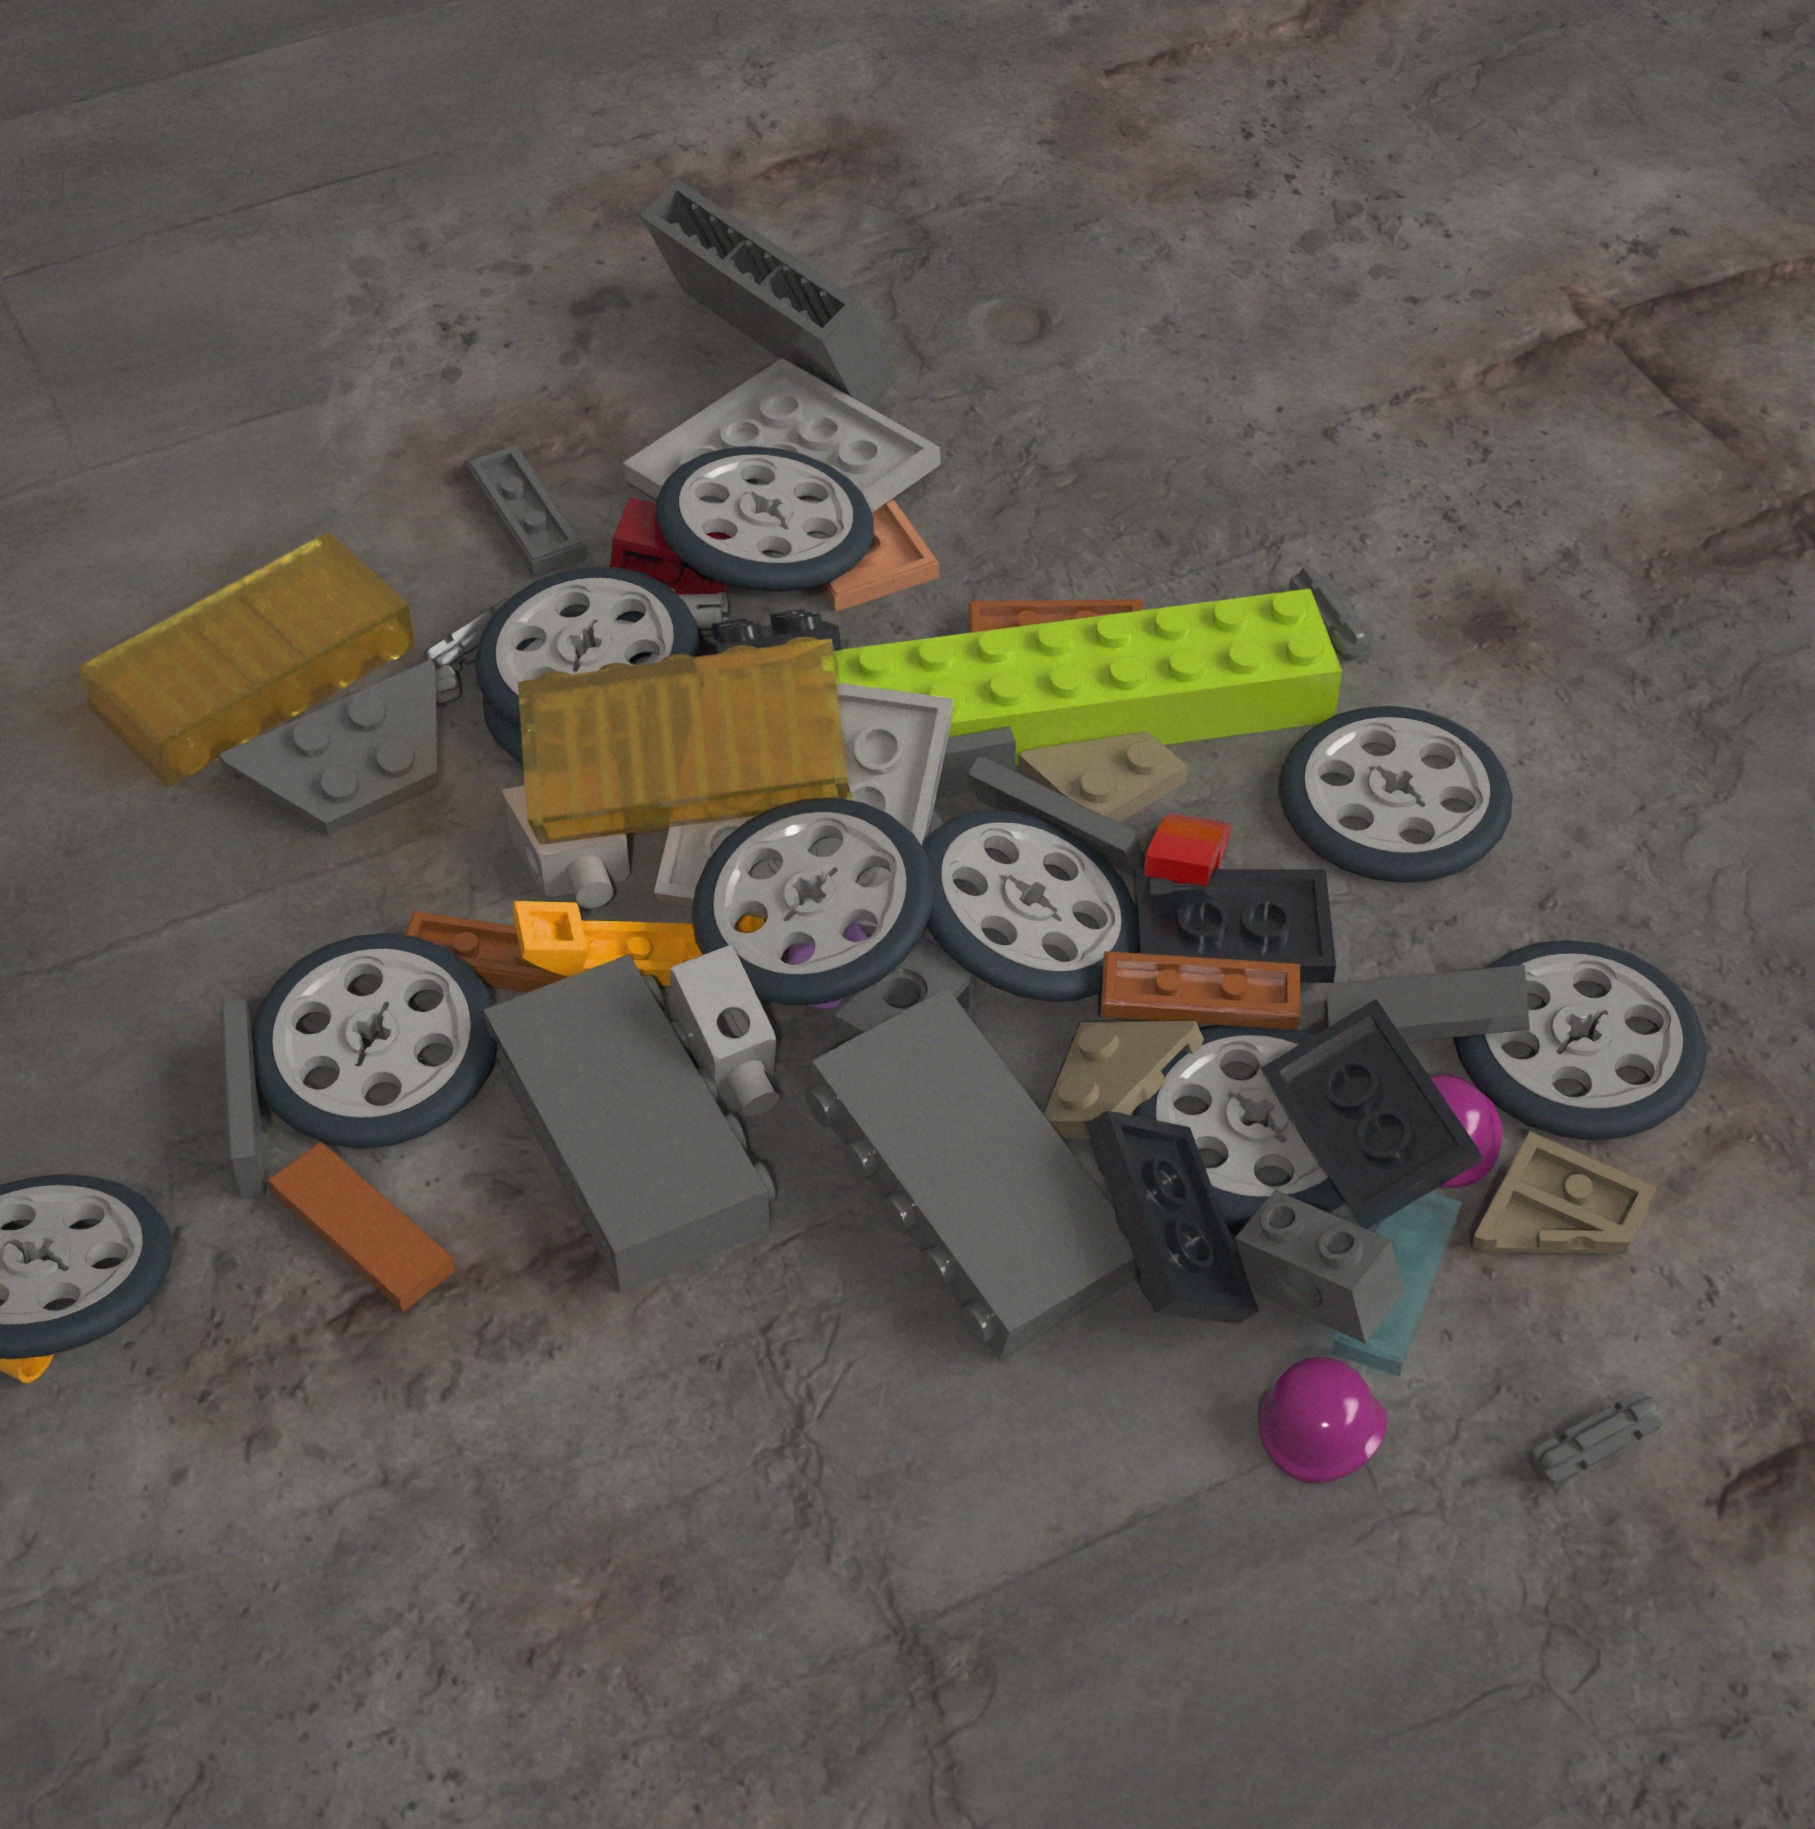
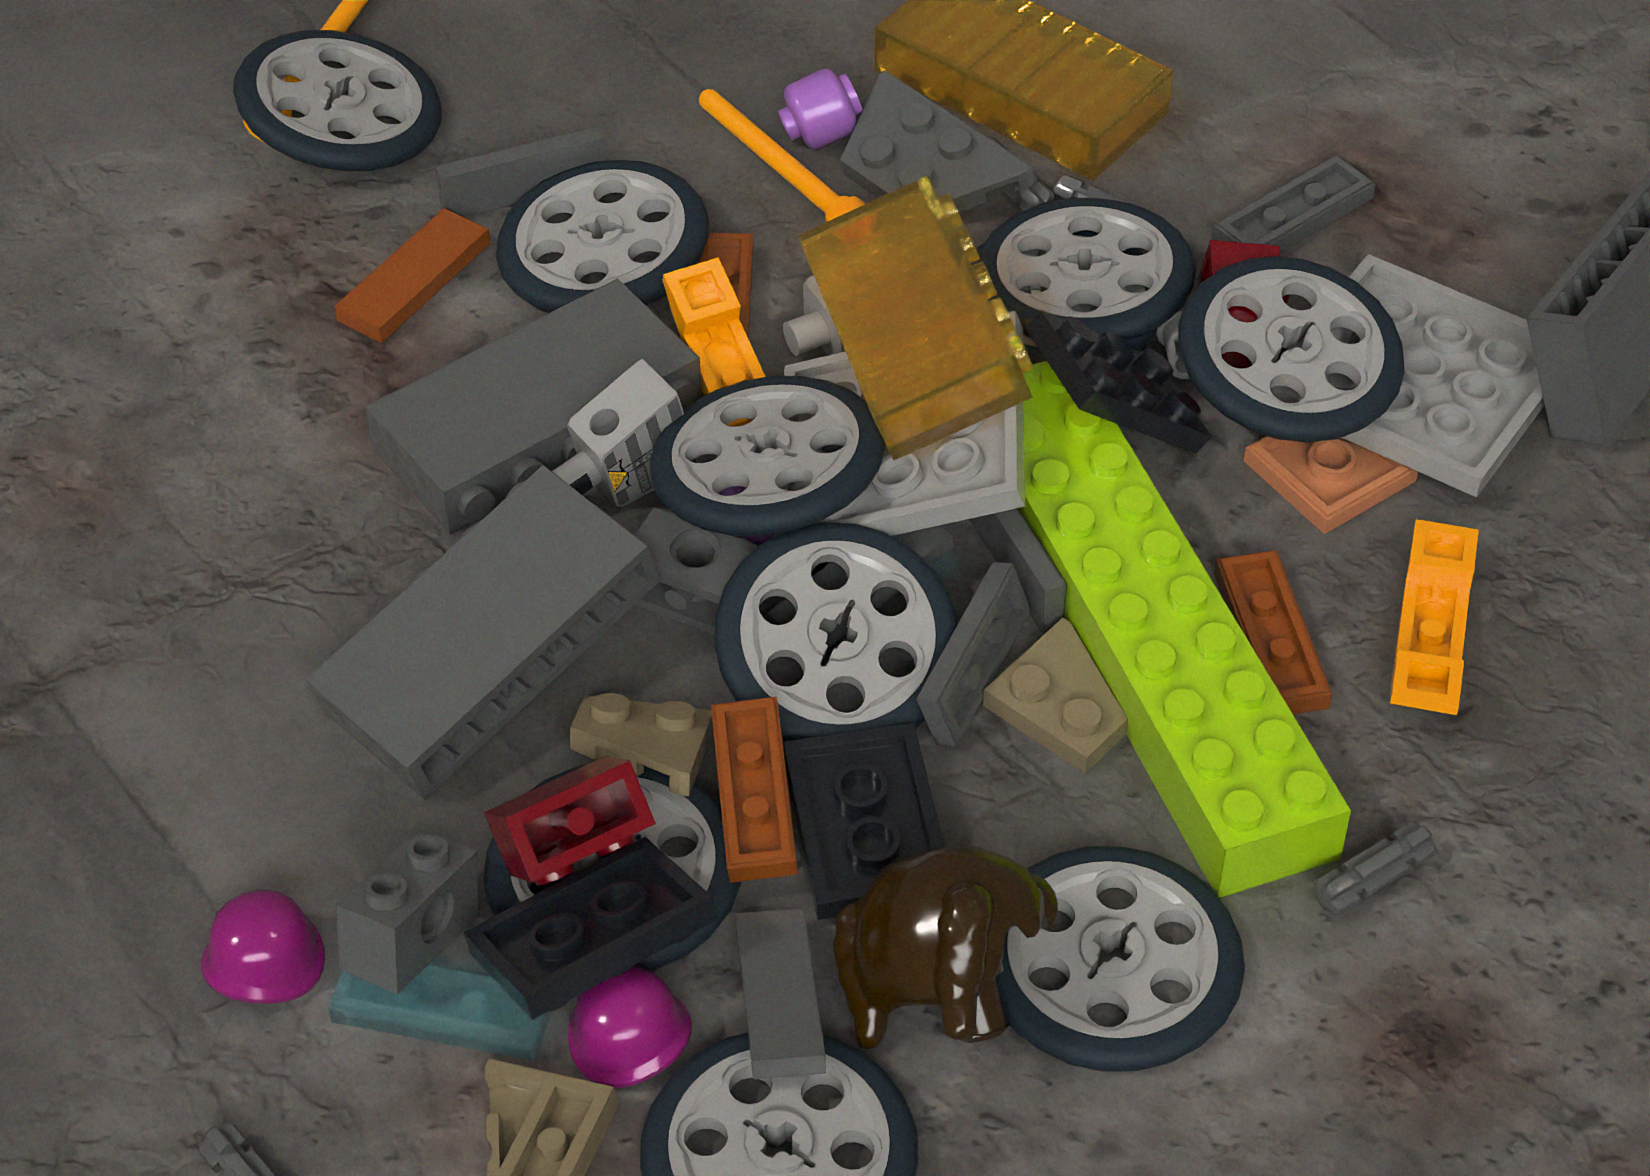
camera: 80 degrees right, 0 degrees up
(244, 822) = (820, 108): none -> medium lavender head
(416, 831) = (777, 157): none -> light orange piece
(1079, 530) = (1434, 617): none -> light orange slope
(1171, 1218) = (437, 770): black plate -> none
(1187, 849) = (944, 750): red slope -> none
(1245, 1113) = (569, 820): none -> dark red brick
(1418, 863) = (936, 938): none -> dark brown piece

